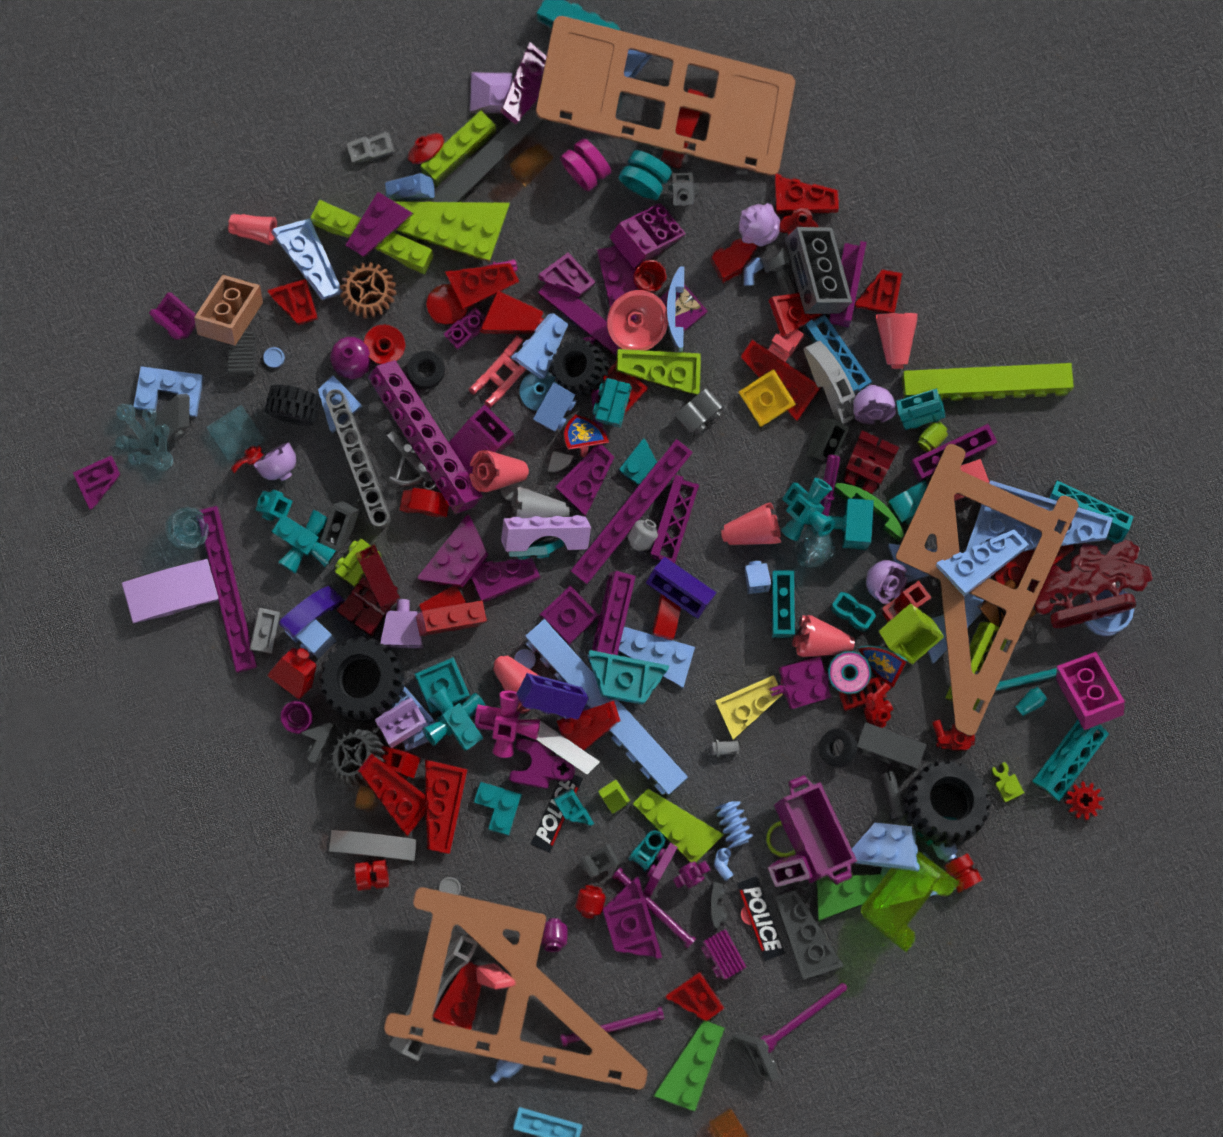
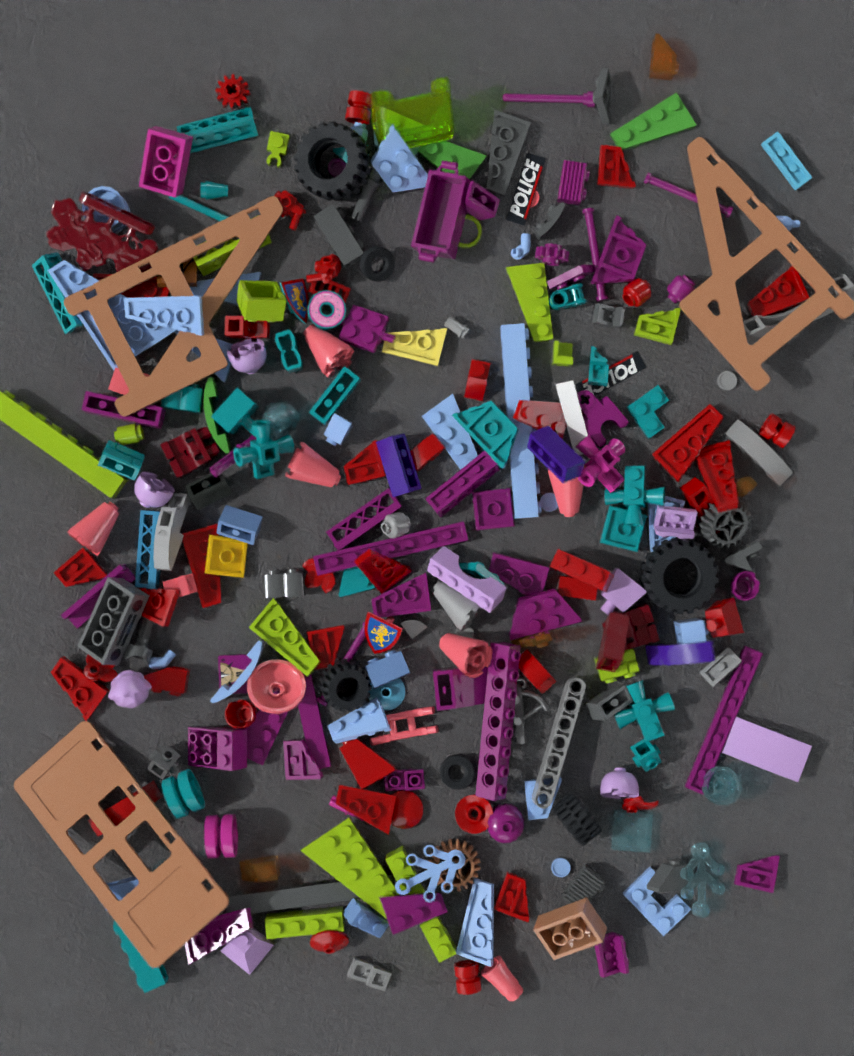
camera: 140 degrees left, 10 degrees up
(282, 204) = (467, 975): none -> red wheel
(383, 269) = (434, 871): none -> light blue plant
(443, 530) = (539, 639): none -> clear orange wing
(493, 976) = (748, 292): coral slope -> none
(548, 887) = (658, 326): none -> lime wing
(612, 402) = (342, 639): teal brick -> none
(624, 486) = (381, 569): none -> red wing
(664, 442) = (326, 581): none -> red plate
(671, 716) = (477, 380): none -> red slope
(710, 565) = (365, 466): none -> red wing
(733, 823) = (492, 267): light blue piece -> none
(777, 432) = (243, 524): none -> medium blue brick
(941, 805) = (336, 167): none -> magenta tile

